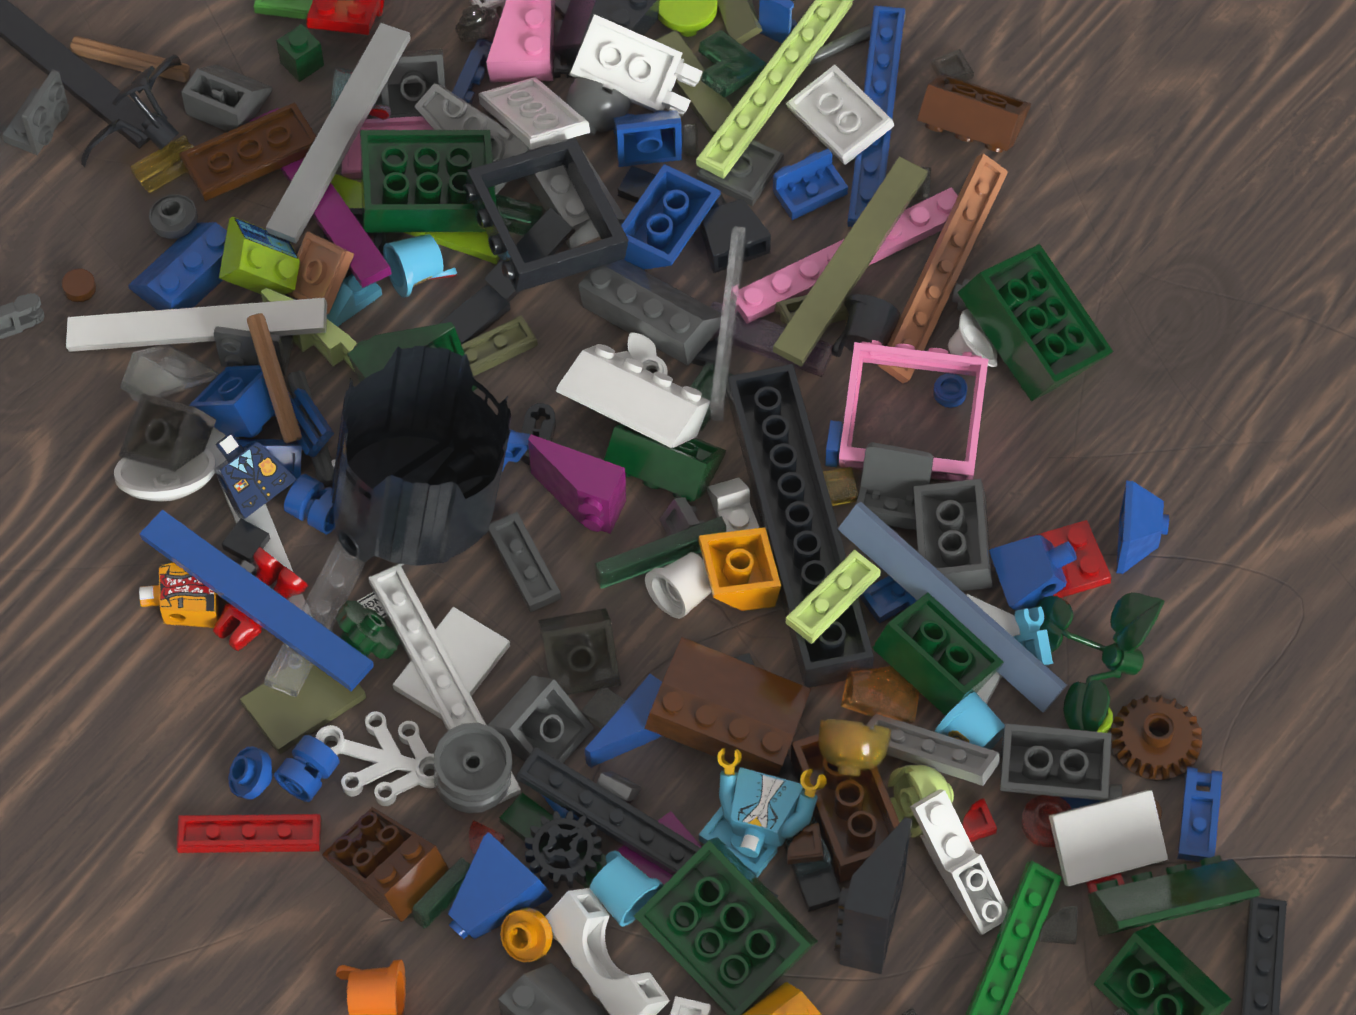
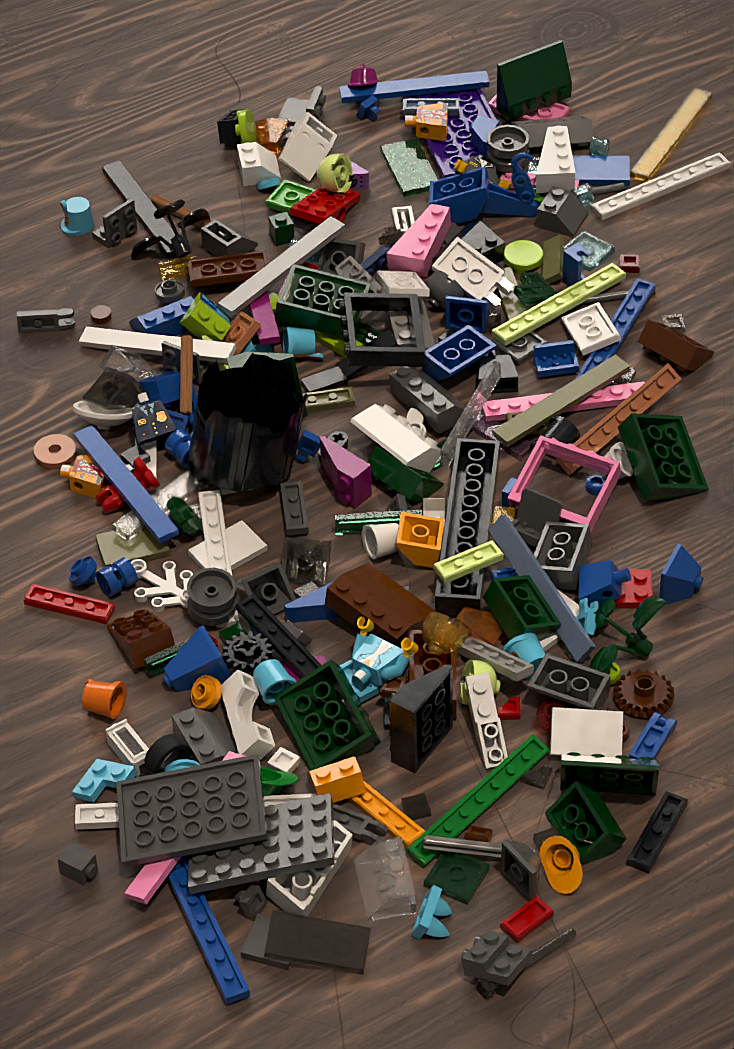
camera: 20 degrees right, 15 degrees down
(106, 544) = (49, 443): none -> tile

